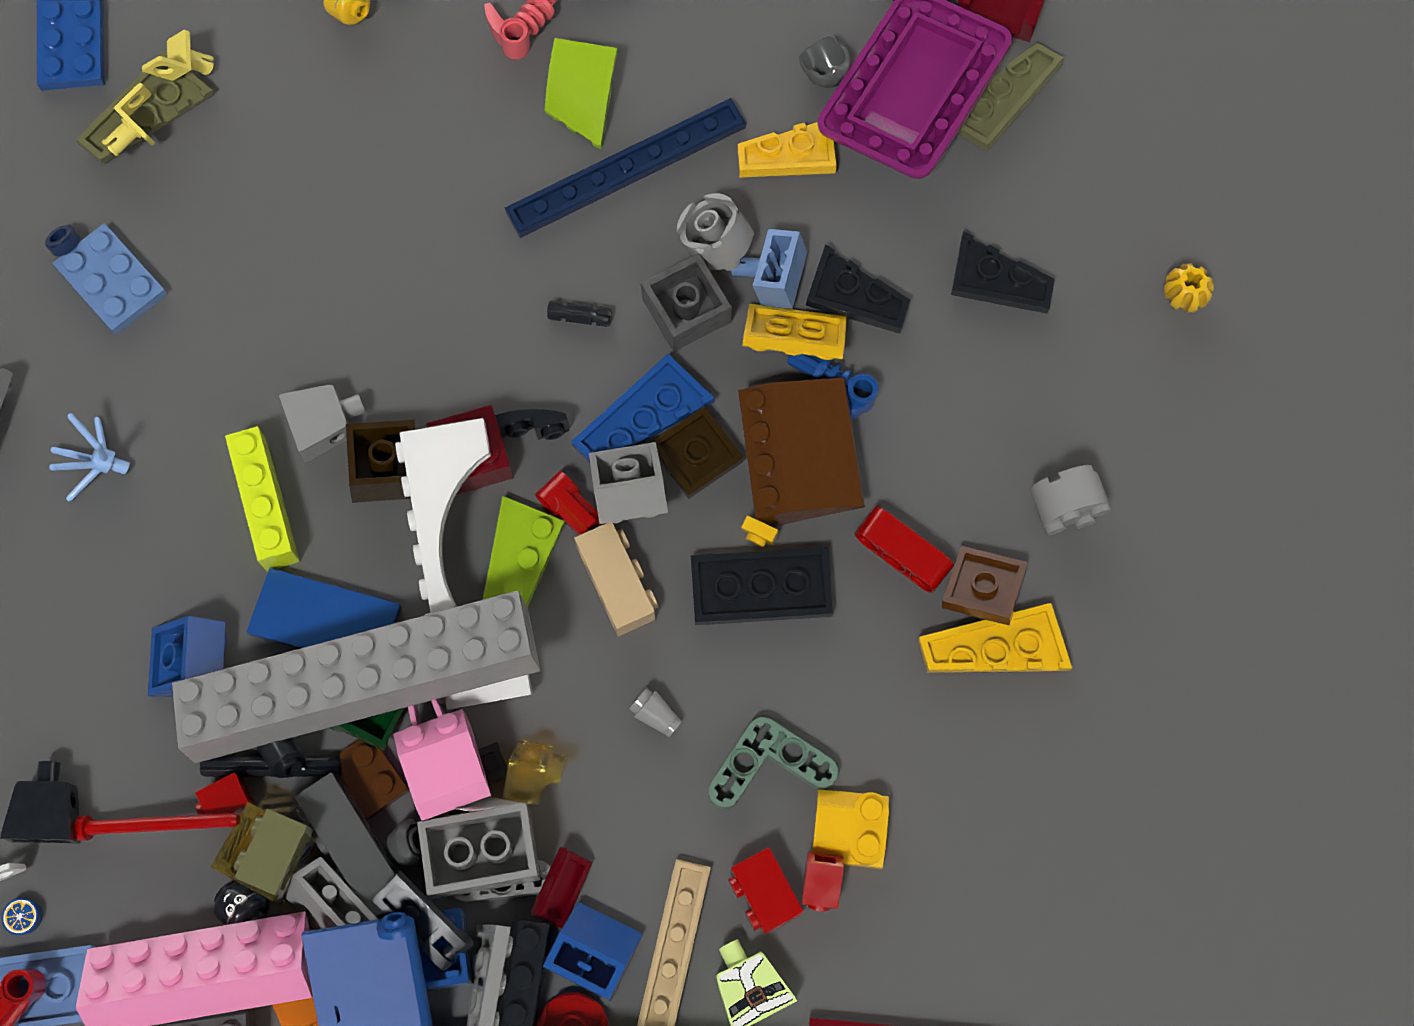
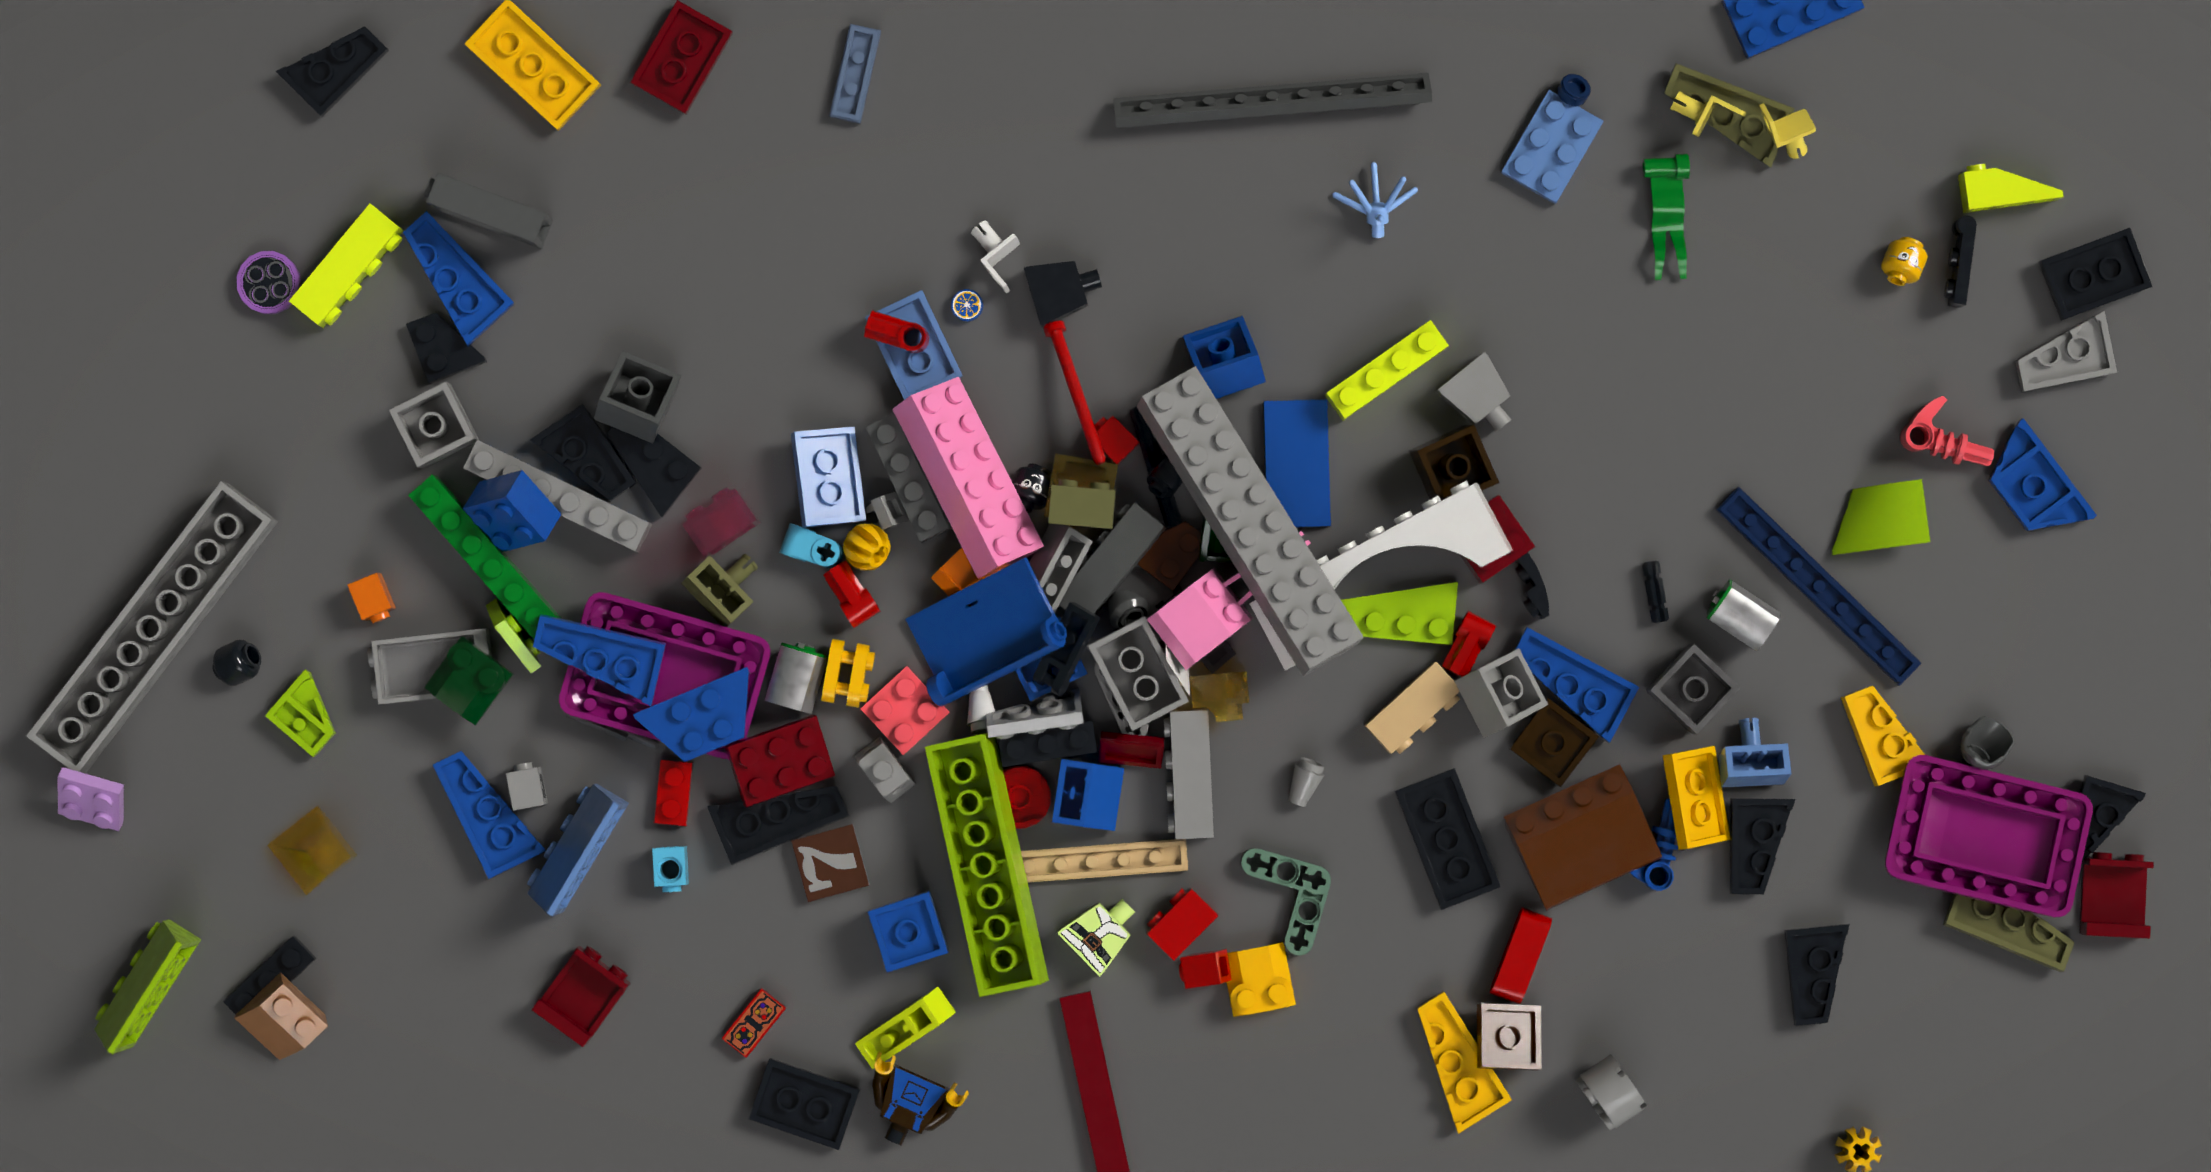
camera: 70 degrees right, 15 degrees up
(212, 189) = (1668, 207): none -> green flag
(608, 831) = (1190, 774): none -> light grey brick
(629, 236) = (1742, 614): none -> flat silver piece
(715, 232) = (1769, 694): light grey brick -> none
(759, 532) = (1495, 822): yellow plate -> none

